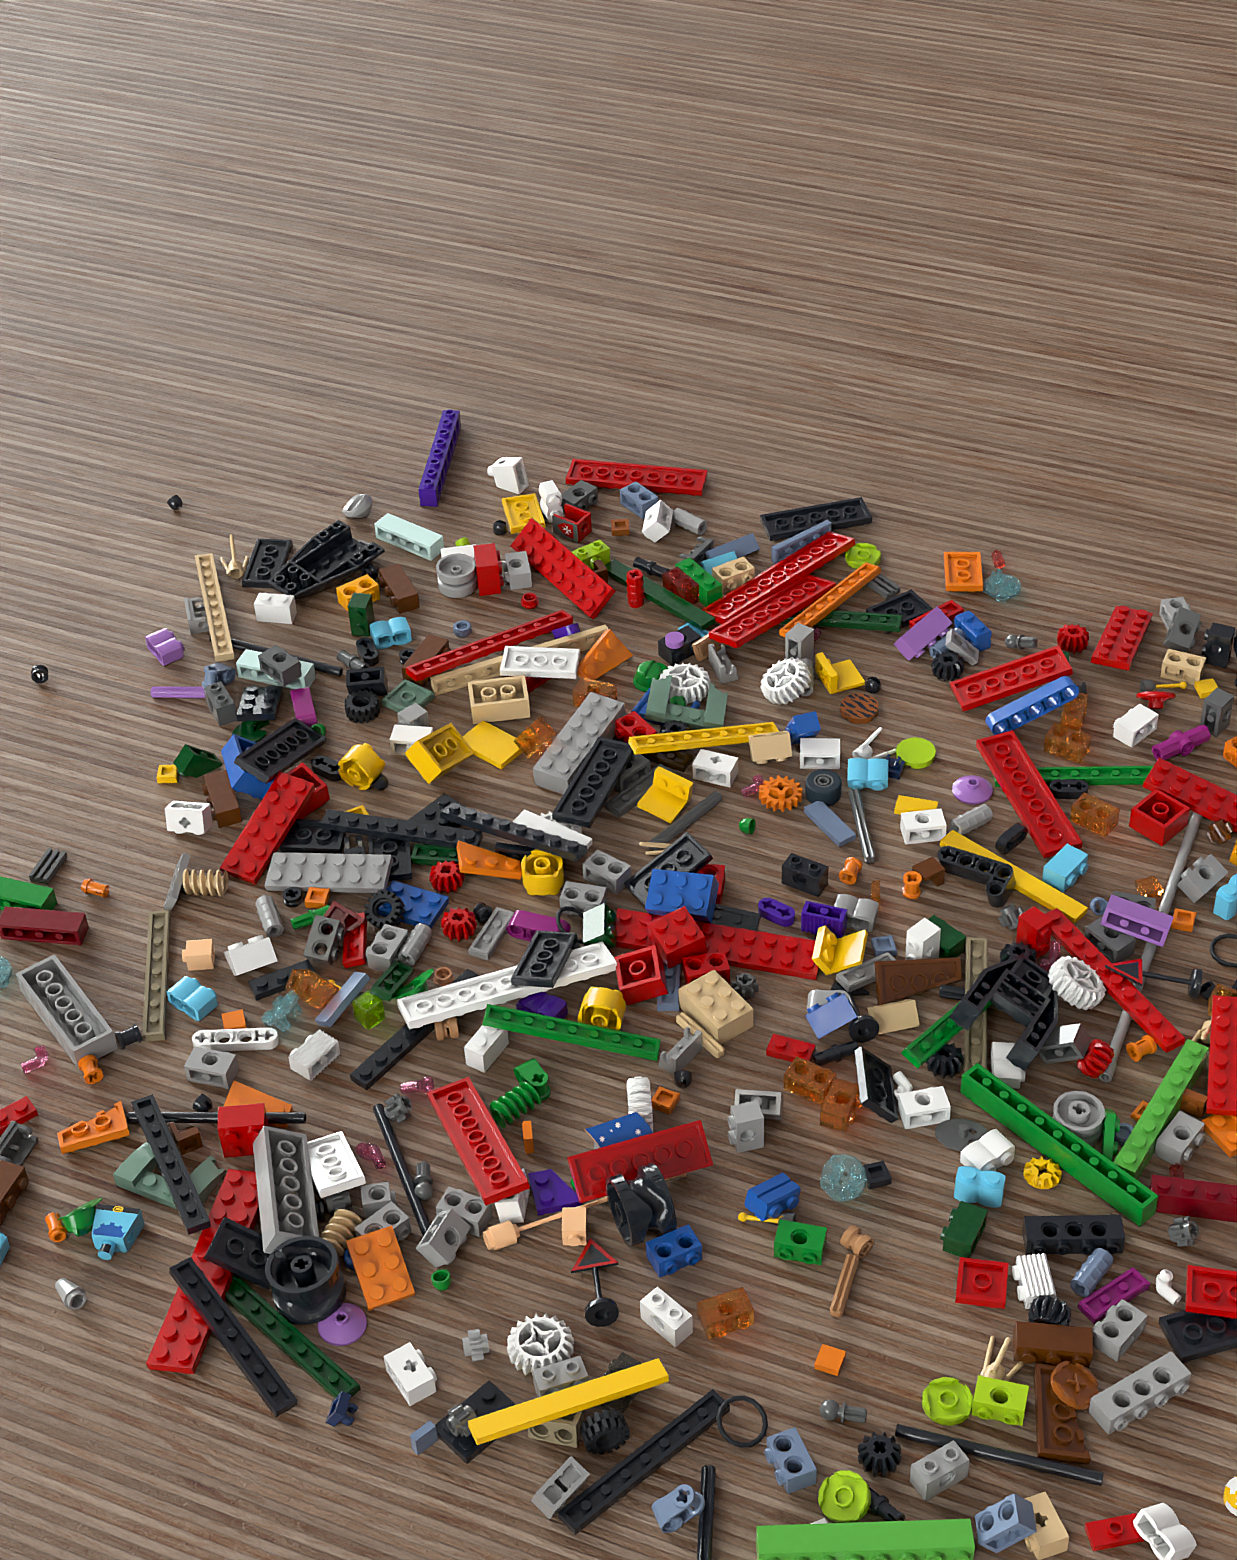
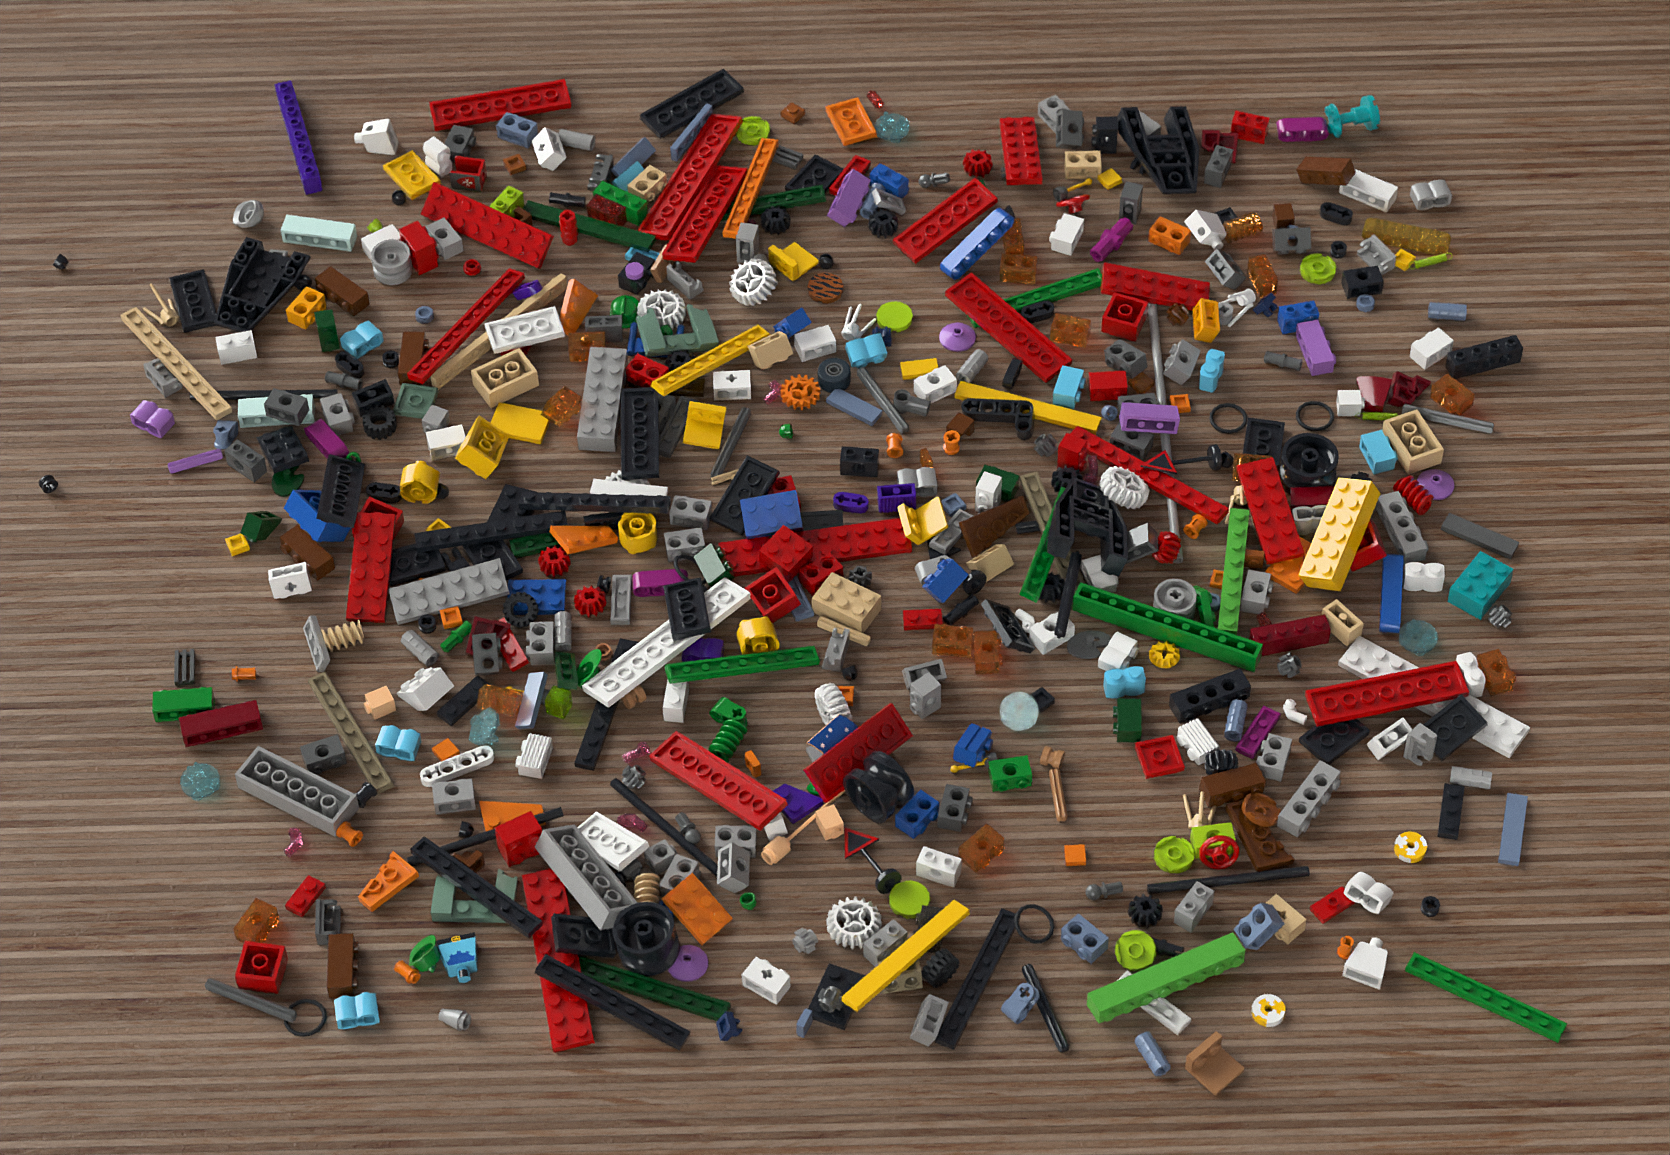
camera: 25 degrees left, 10 degrees up
(115, 986) = (330, 748): none -> dark grey brick
(327, 688) = (336, 414): none -> light grey brick
(616, 1337) = (908, 897): none -> lime tile
(627, 683) = (609, 324): none -> dark grey hinge
(718, 1258) = (951, 807): none -> dark grey brick
(840, 636) = (775, 220): none -> black gear
(885, 835) = (906, 403): none -> dark grey piece
(910, 551) = (792, 113): none -> dark orange plate
(956, 1072) = (1067, 595): none -> black axle
(997, 1419) = (1219, 854): none -> red piece
(1107, 877) = (1107, 385): none -> red brick
(1141, 857) = (1125, 358): none -> dark grey brick

